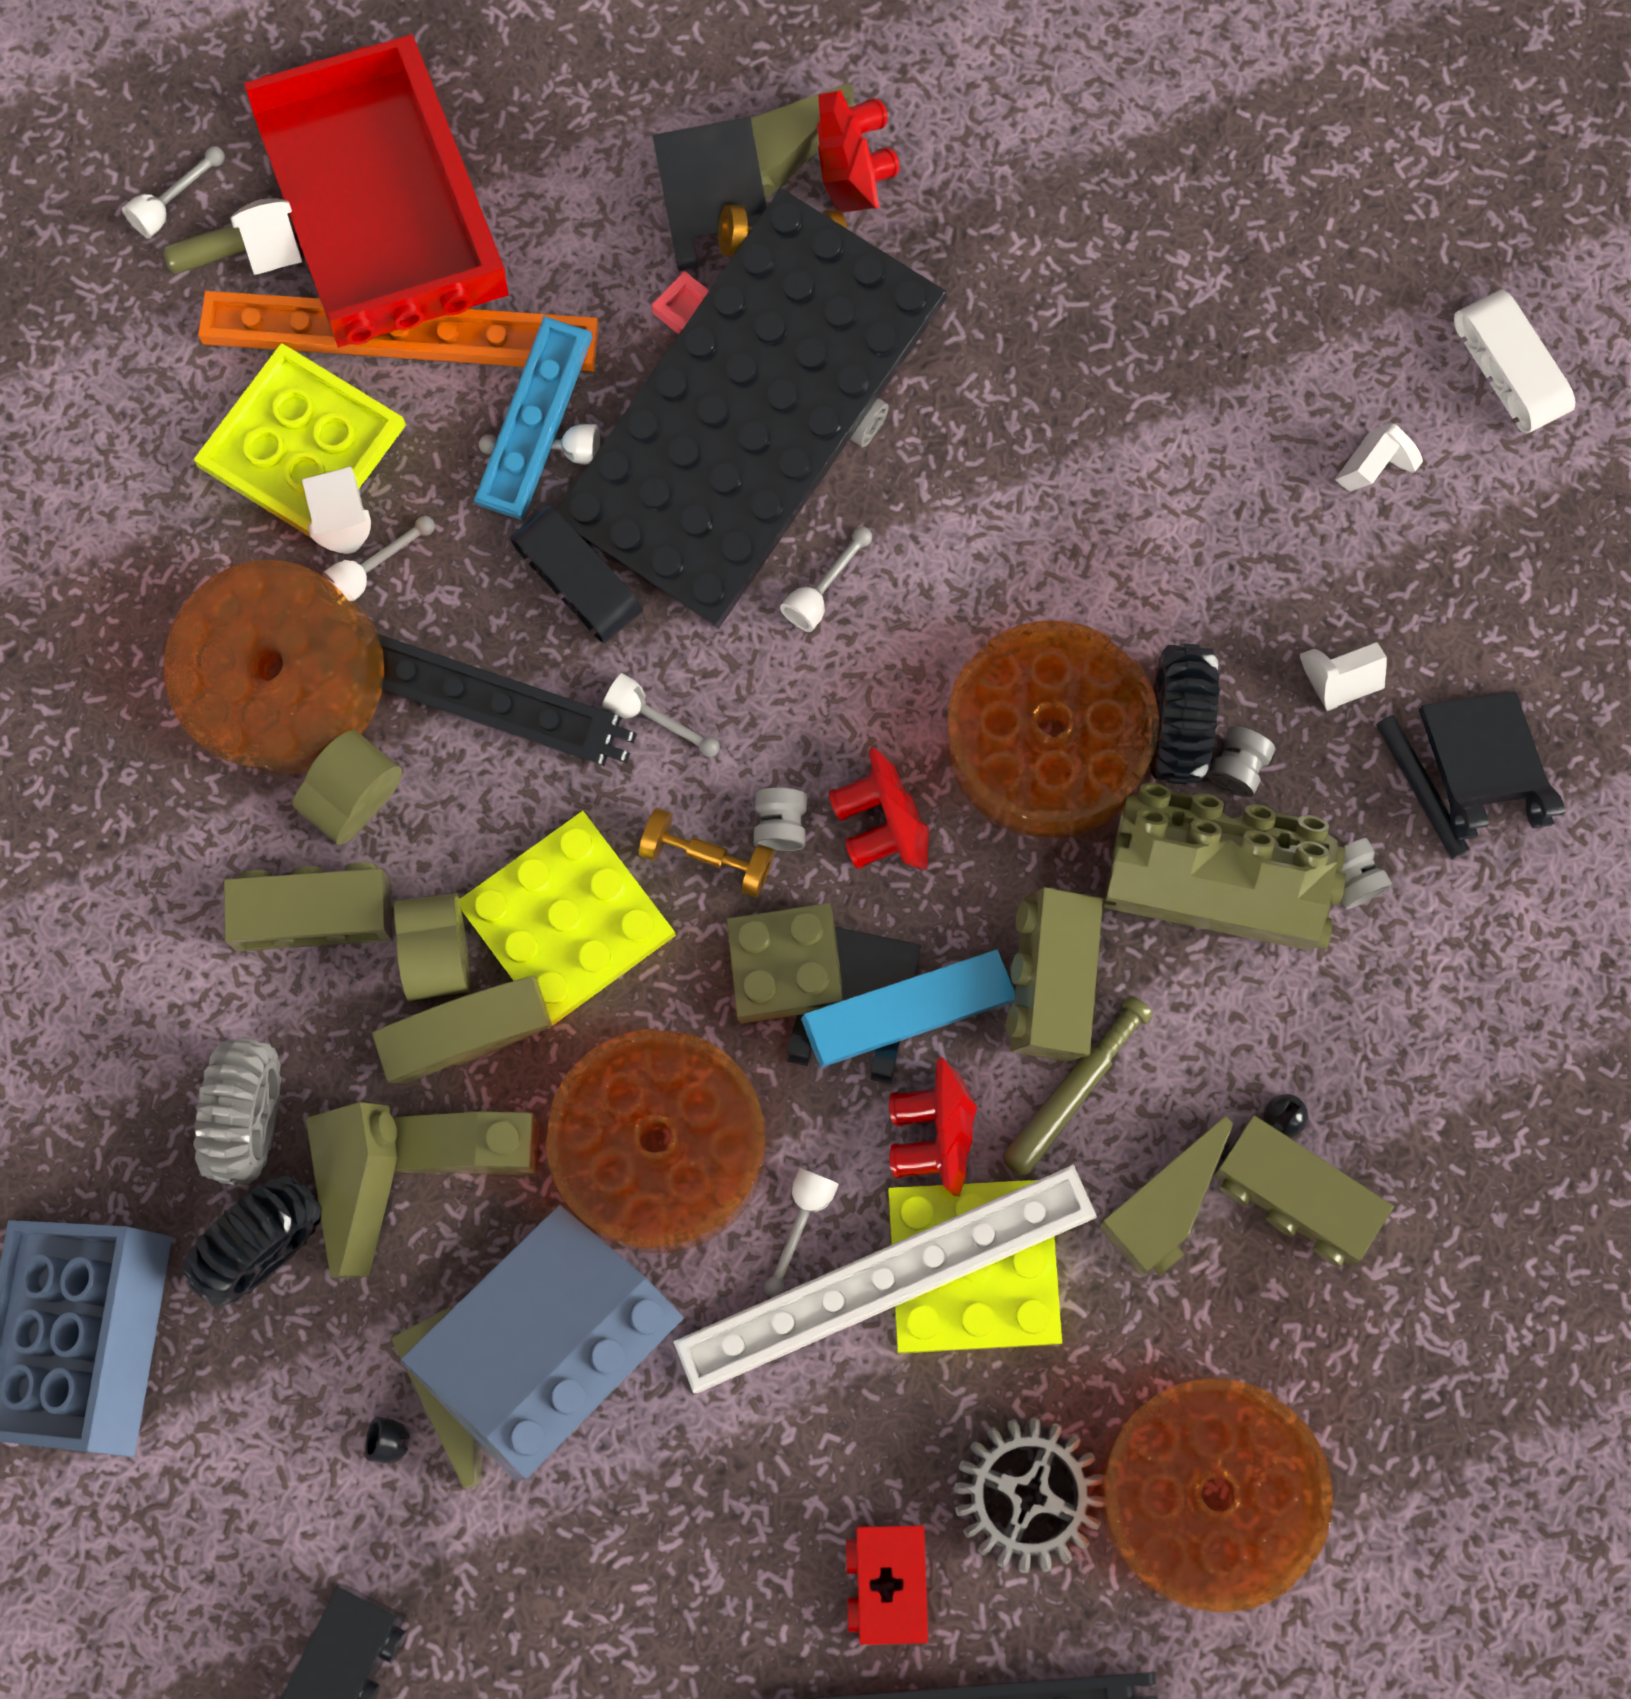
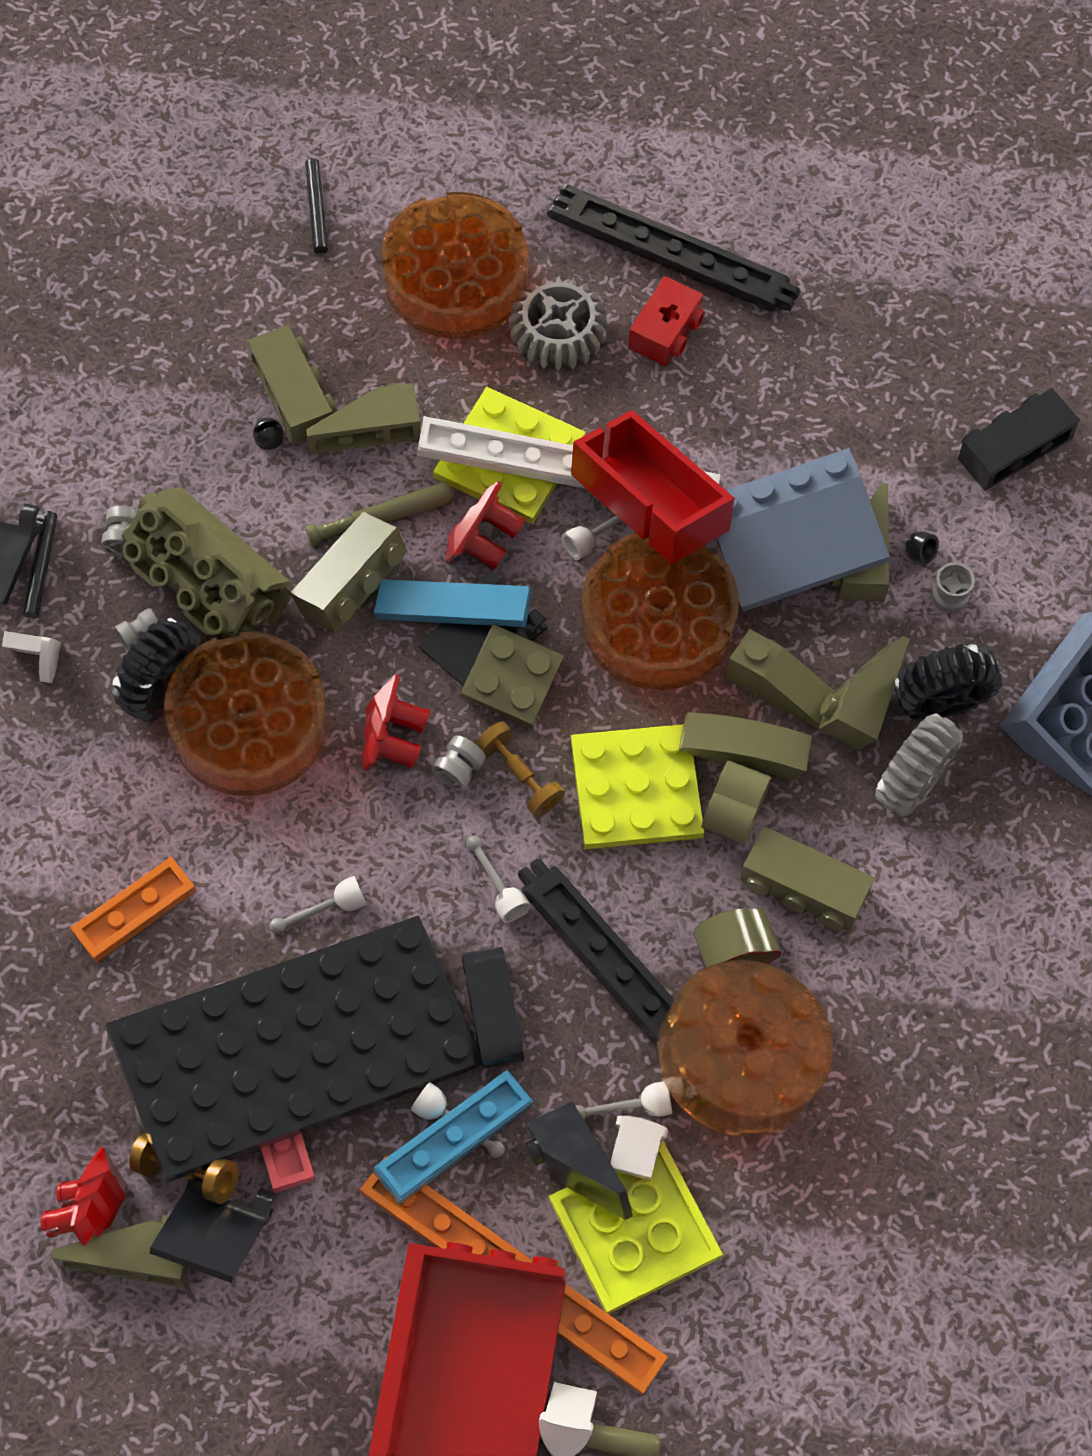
camera: 155 degrees left, 10 degrees down
(306, 1398) = (955, 579): none -> light grey wheel
(393, 458) = (575, 1159): none -> black slope
(745, 1267) = (652, 486): none -> red piece
(1022, 461) = (133, 909): none -> orange plate
(1466, 1497) = (316, 206): none -> black bar

